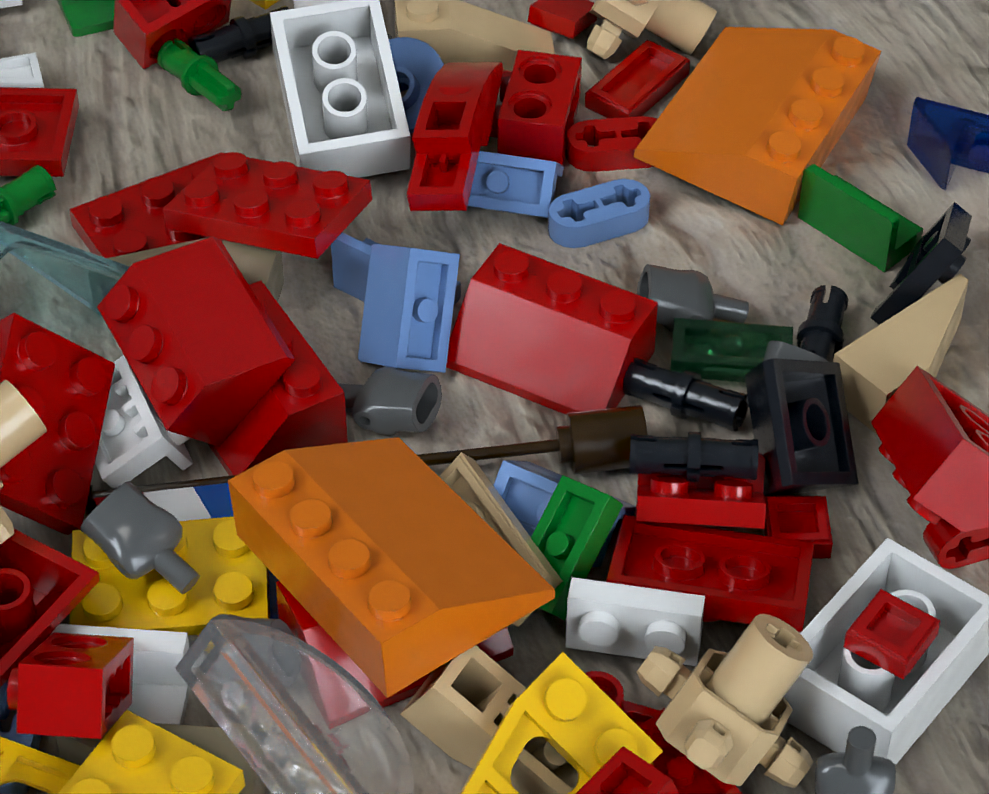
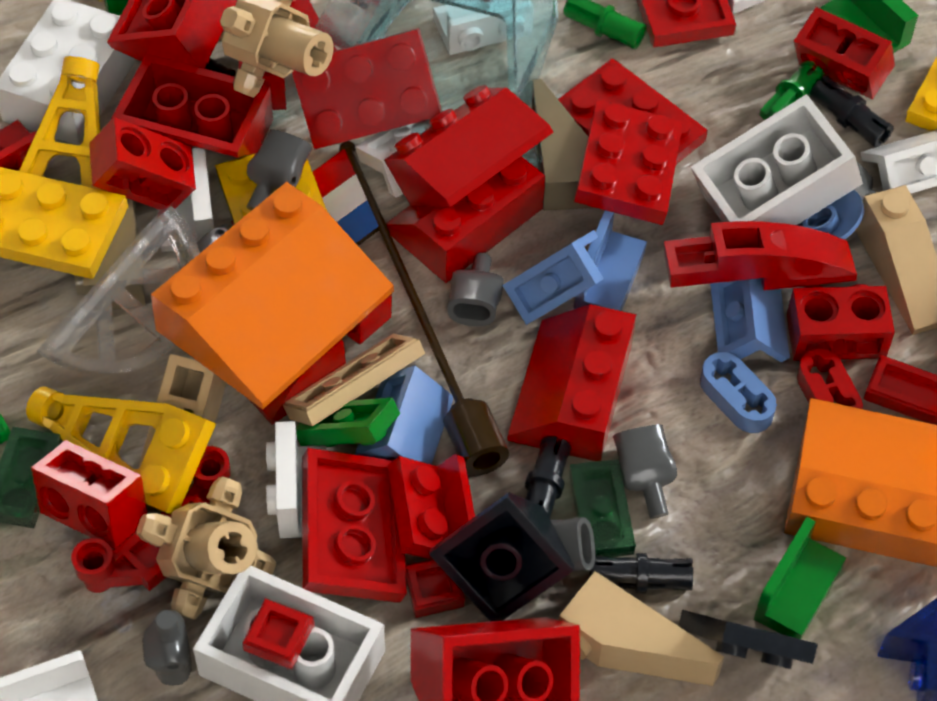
camera: 75 degrees right, 10 degrees up
(694, 456) = (447, 484): black pin -> none

